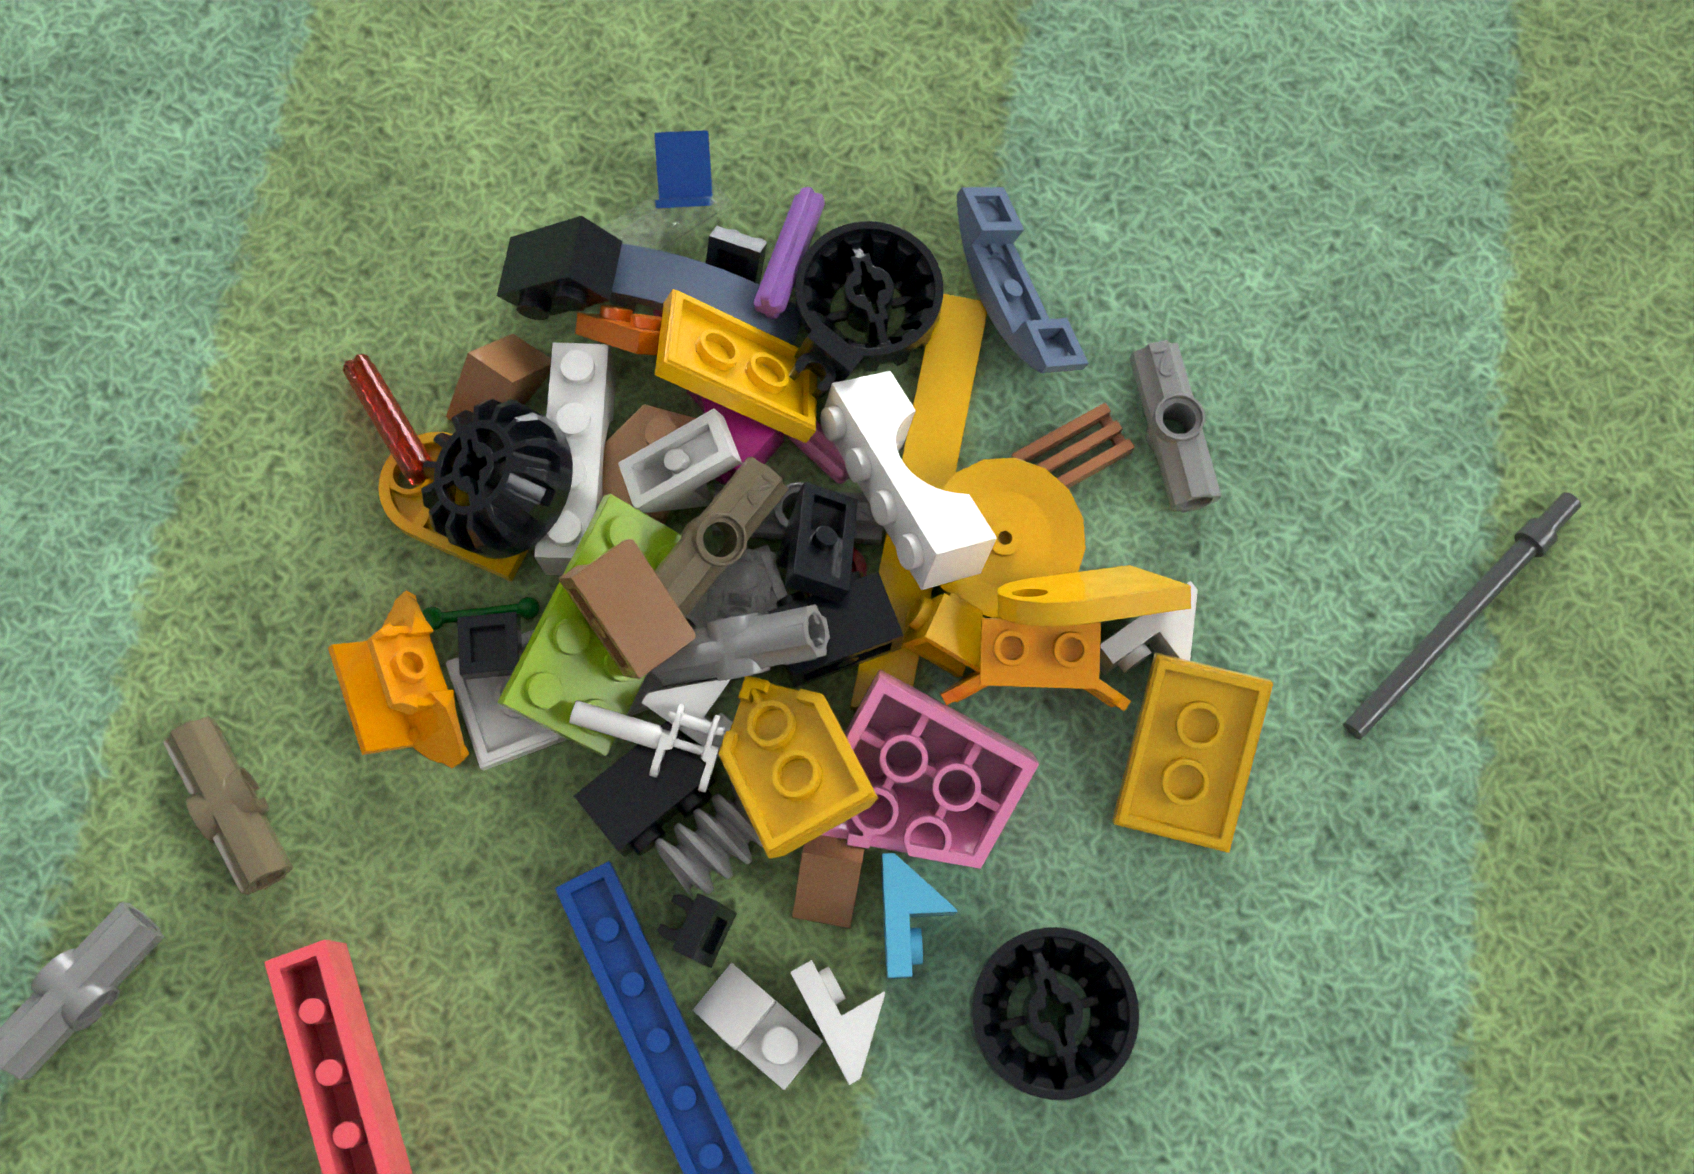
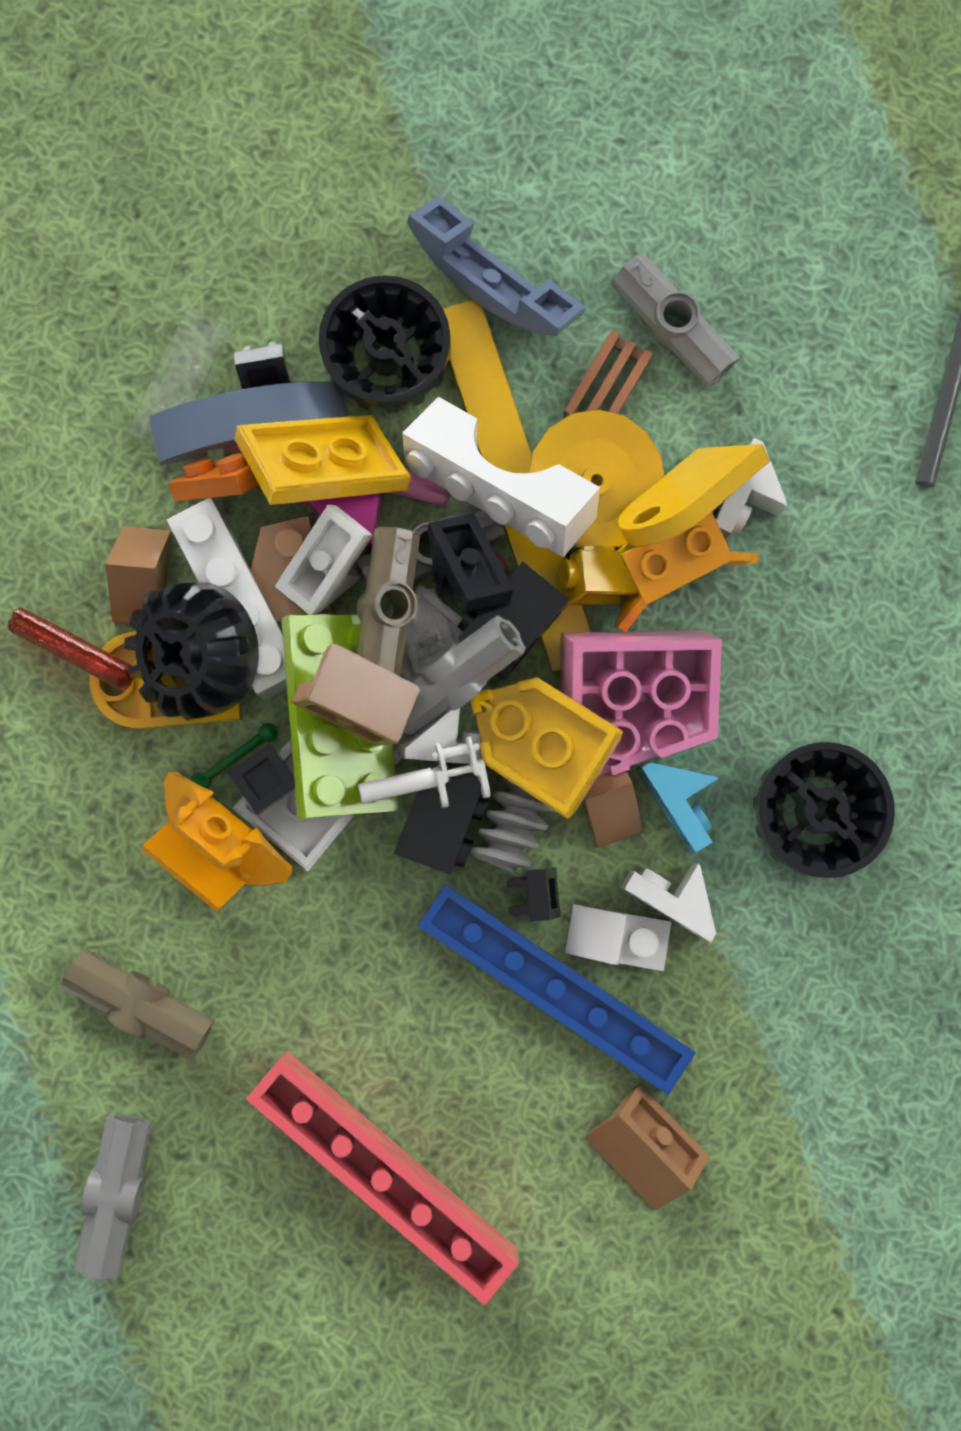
camera: 30 degrees left, 10 degrees up
(559, 268) = (133, 456): black brick -> none
(683, 169) = (181, 321): blue bracket -> none
(788, 253) = (303, 342): medium lavender axle -> none
(826, 357) = (384, 413): black tile -> none
(1192, 752) = (821, 565): yellow tile -> none

